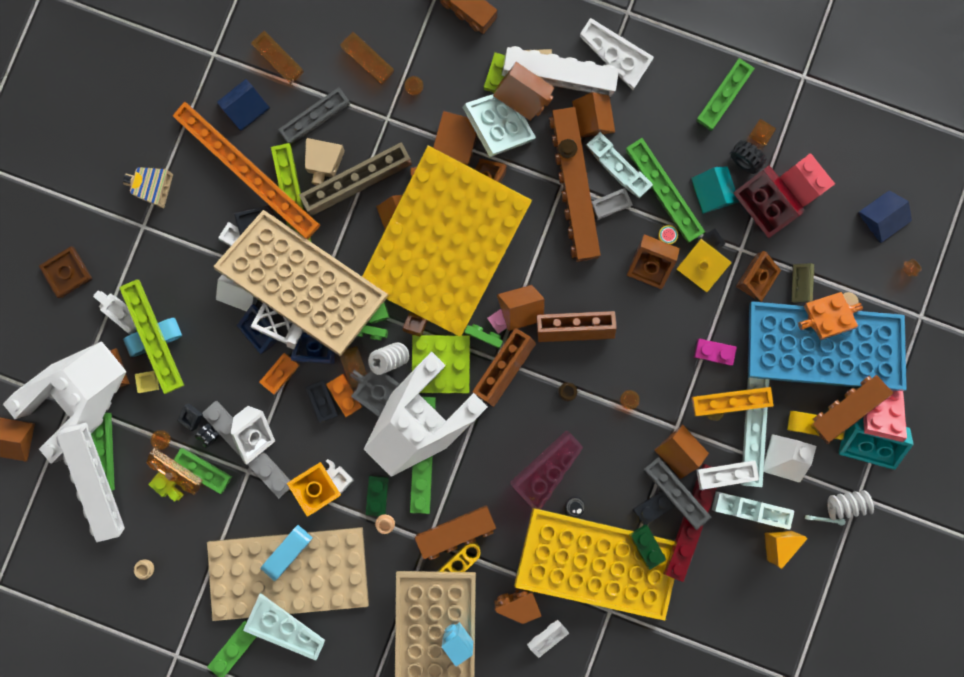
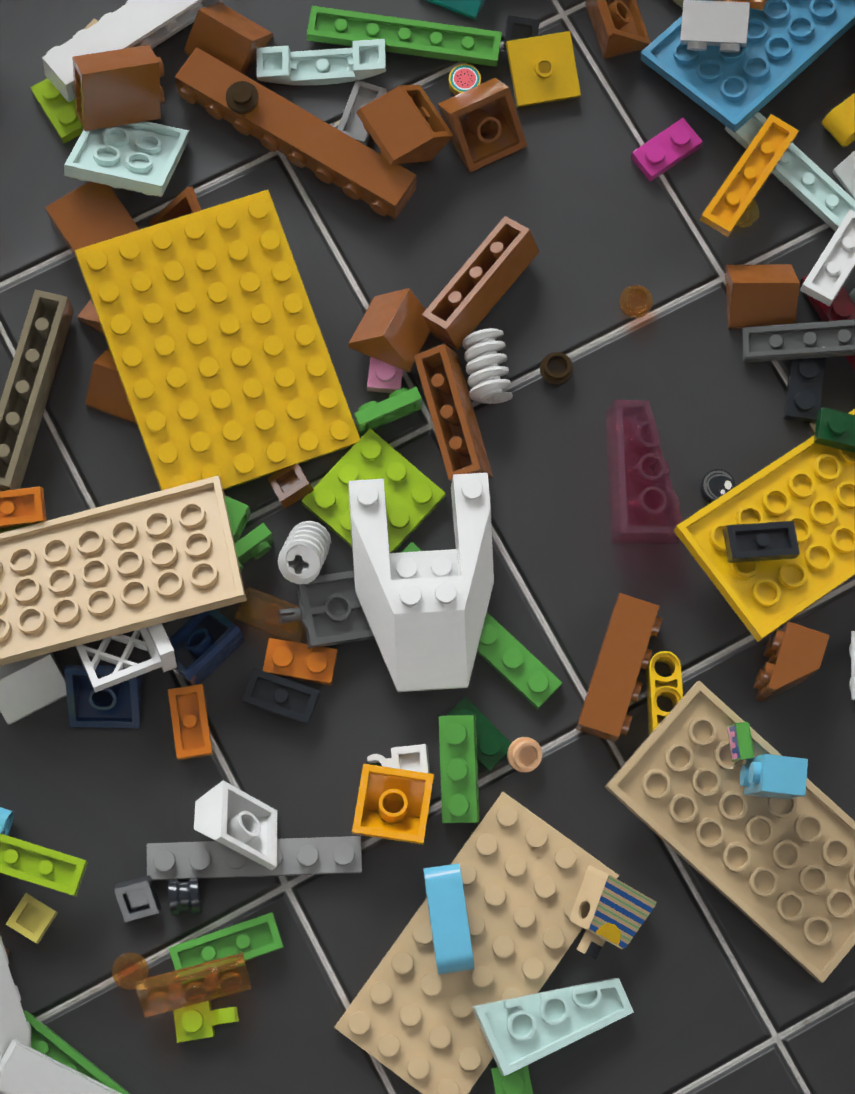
camera: 55 degrees left, 10 degrees down
(346, 616) = (608, 911): none -> tan torso
(354, 502) = (459, 769): none -> bright green plate
(462, 615) = (740, 741): none -> bright green tile
(540, 362) = (485, 368): none -> white piece
(558, 552) = (761, 541): none -> black plate
(619, 230) = (405, 125): none -> dark orange slope
(791, 326) = (715, 25): none -> white brick

